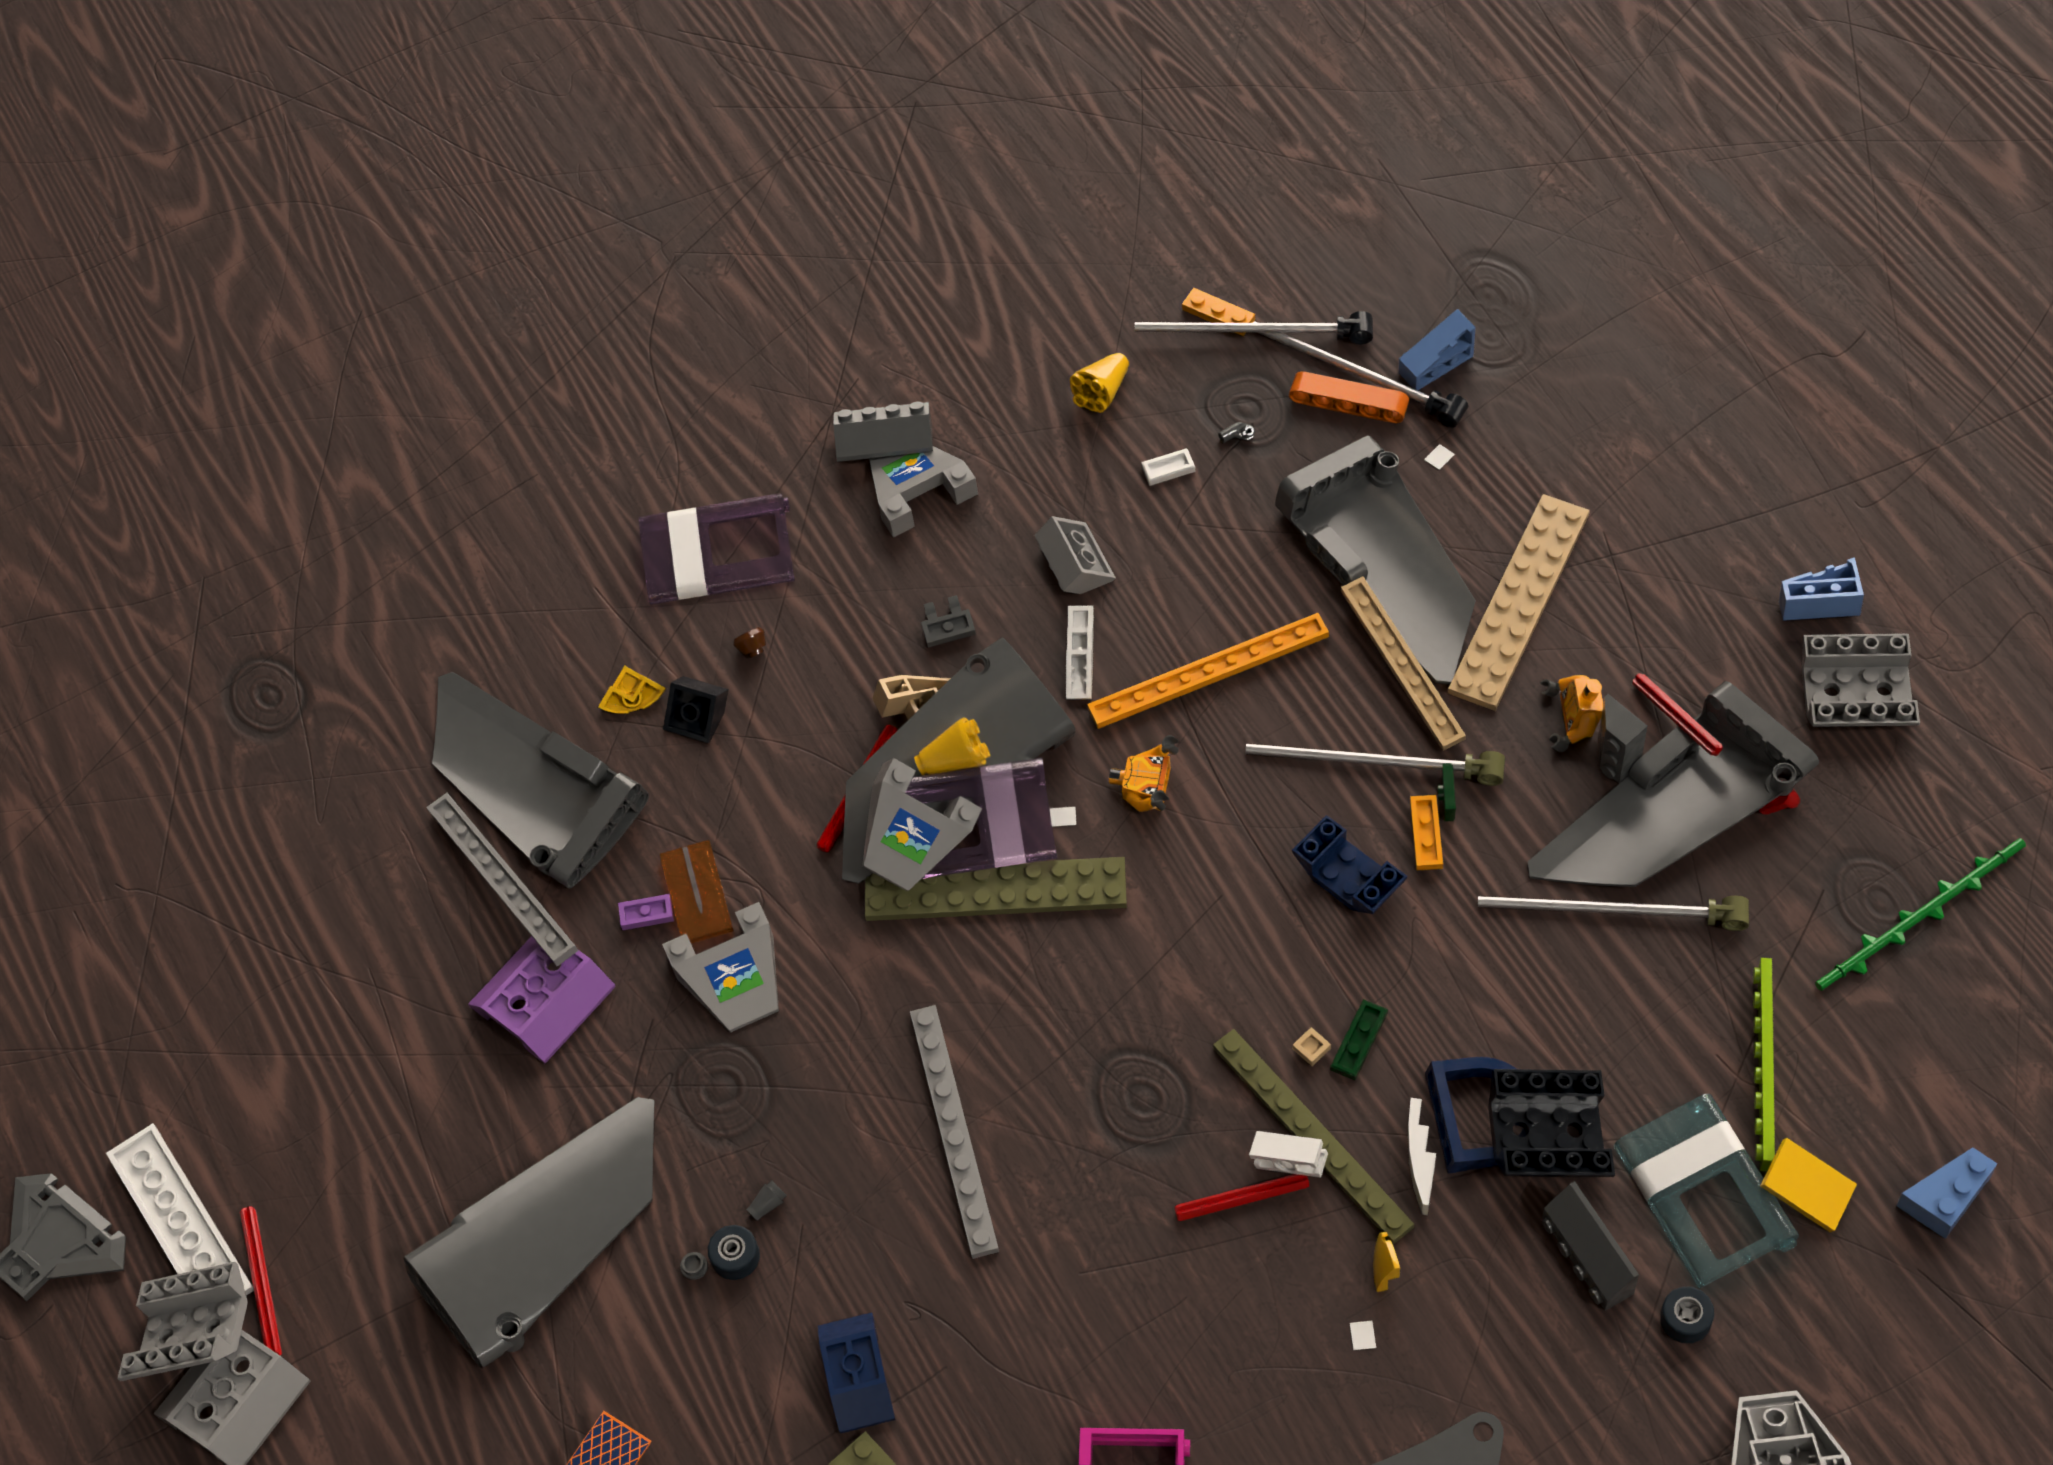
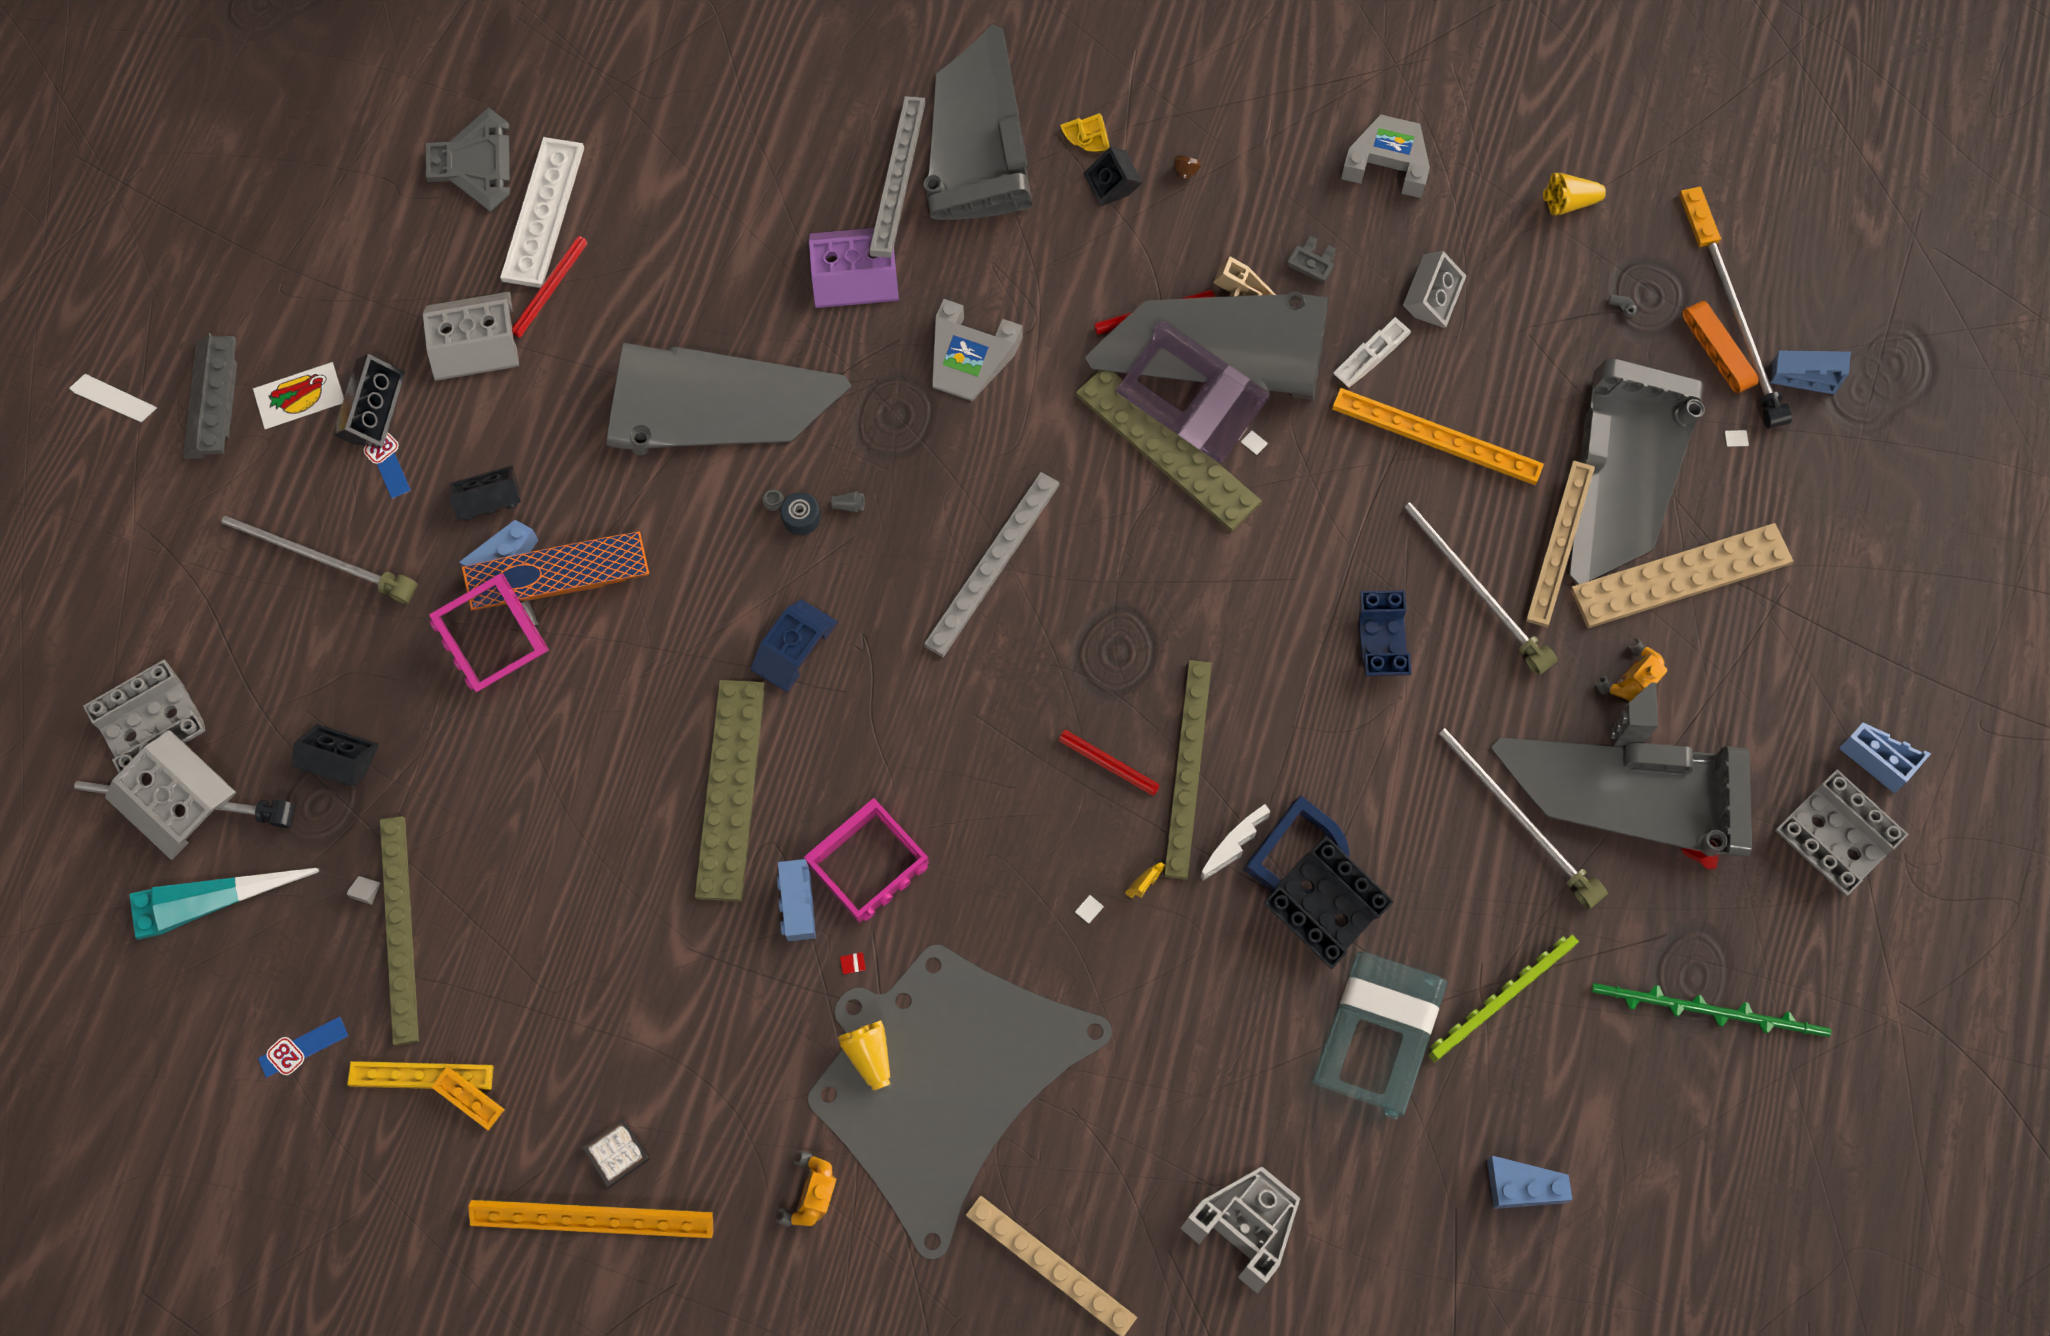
camera: 40 degrees right, 10 degrees up
(189, 1310) = (487, 275): light grey slope -> none
(645, 912) = (959, 272): medium lavender plate -> none
(680, 553) = (1205, 71): piece -> none
(696, 891) = (999, 287): clear orange tile -> none
(883, 431) = (1403, 105): dark grey slope -> none
(905, 834) = (1139, 364): light grey wedge -> none
(953, 749) = (1223, 339): yellow cone -> none
(1146, 776) = (1326, 465): torso -> none
(1168, 467) = (1556, 287): white tile -> none
(1288, 1154) = (1158, 765): white piece -> none
(1311, 1046) = (1244, 718): tan plate -> none
(1358, 327) = (1776, 307): flat silver piece -> none
(1359, 1039) = (1278, 741): dark green tile -> none
(1426, 832) = (1457, 660): light orange plate -> none
(1447, 792) = (1497, 647): dark green plate -> none
(1590, 1247) = (1270, 994): dark grey slope -> none
(1677, 714) = (1696, 740): red axle -> none
(1691, 1305) = (1287, 1082): black wheel -> none
(1808, 1185) = (1443, 1093): yellow tile -> none

